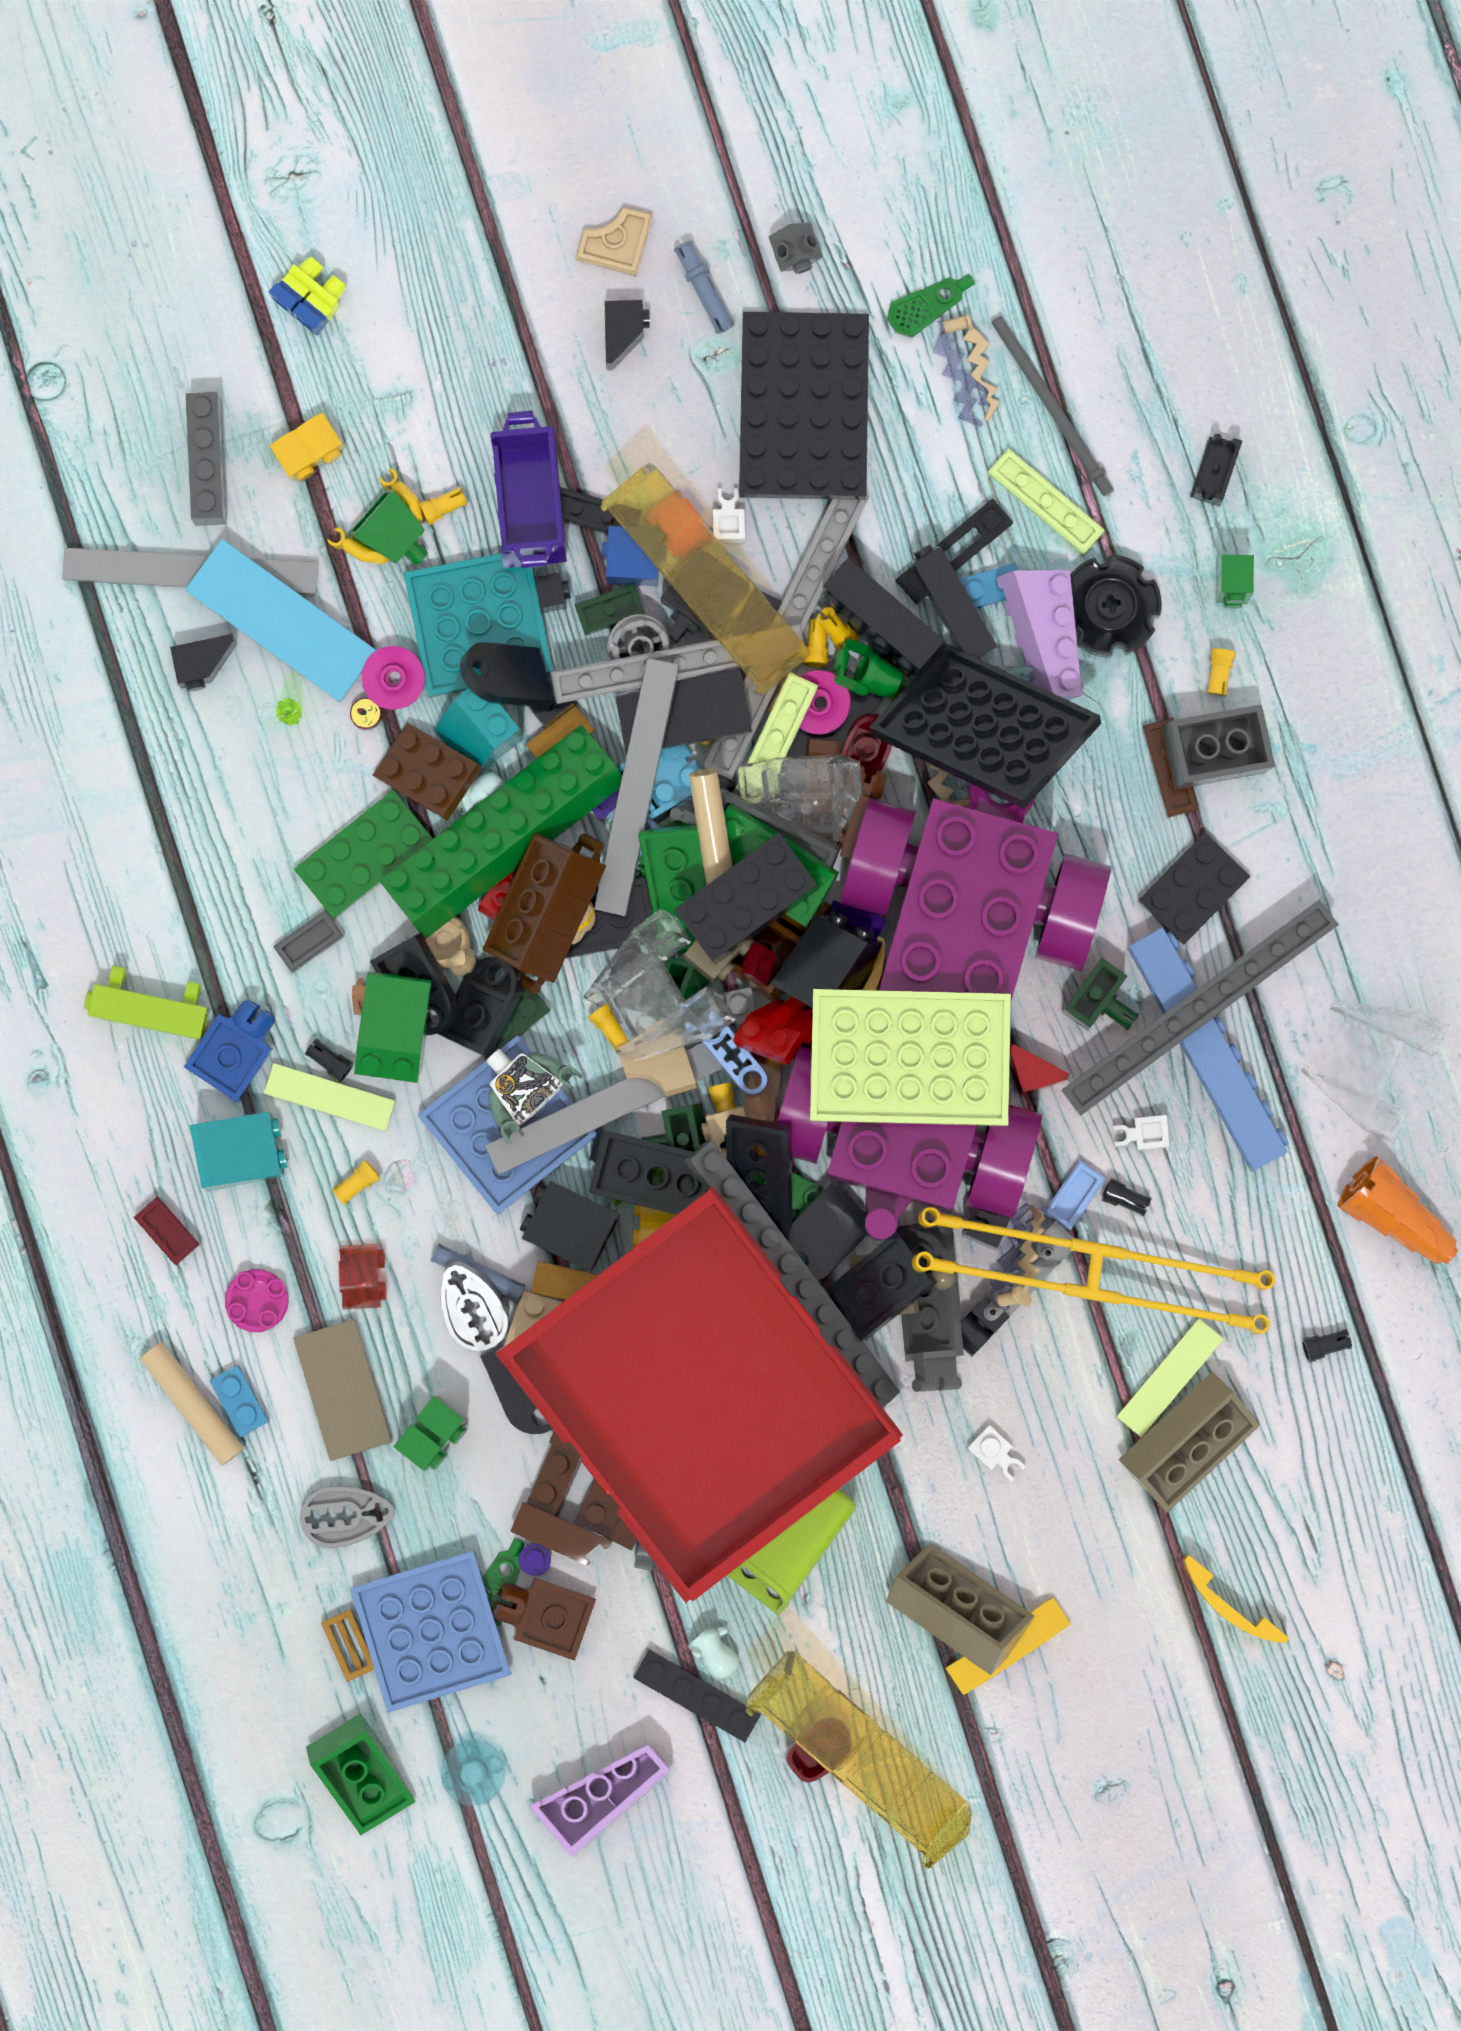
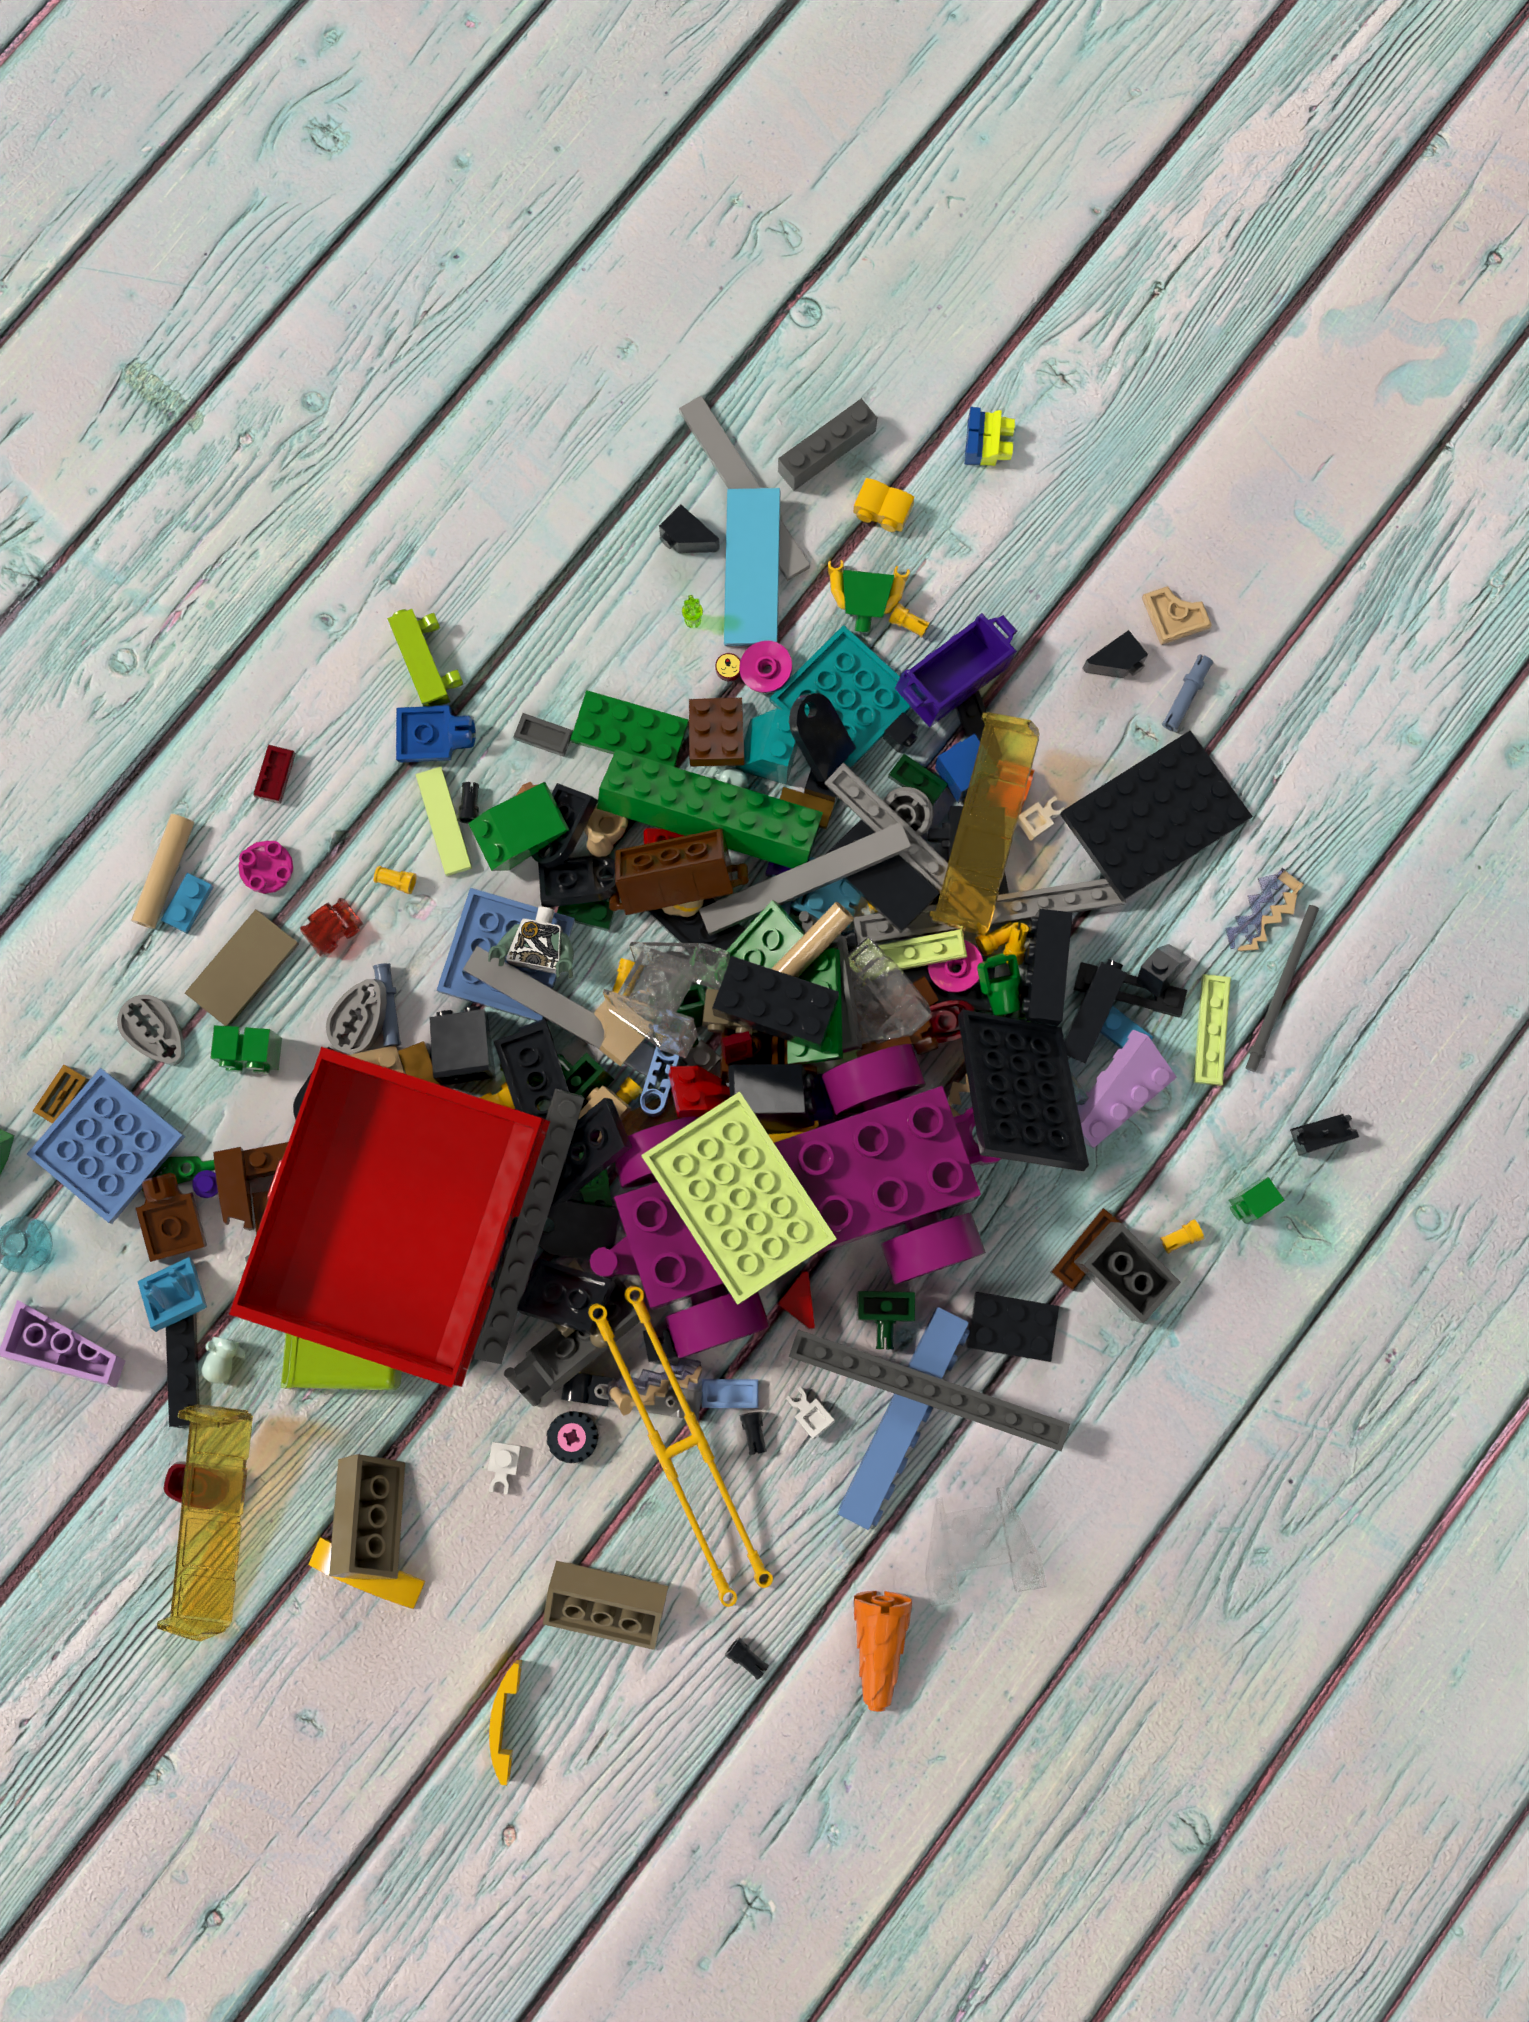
camera: 50 degrees right, 5 degrees down
(238, 1151) = (360, 780): teal slope -> none
(621, 1658) = (172, 1294): none -> dark azure plate
(795, 247) = (1261, 734): dark grey brick -> none
(930, 302) = (1291, 855): green piece -> none
(957, 507) = (1162, 969): none -> black slope
(1006, 1376) = (584, 1431): none -> black wheel
(1123, 585) = (1190, 1137): black piece -> none
(1169, 1377) = (644, 1557): yellowish green tile -> none

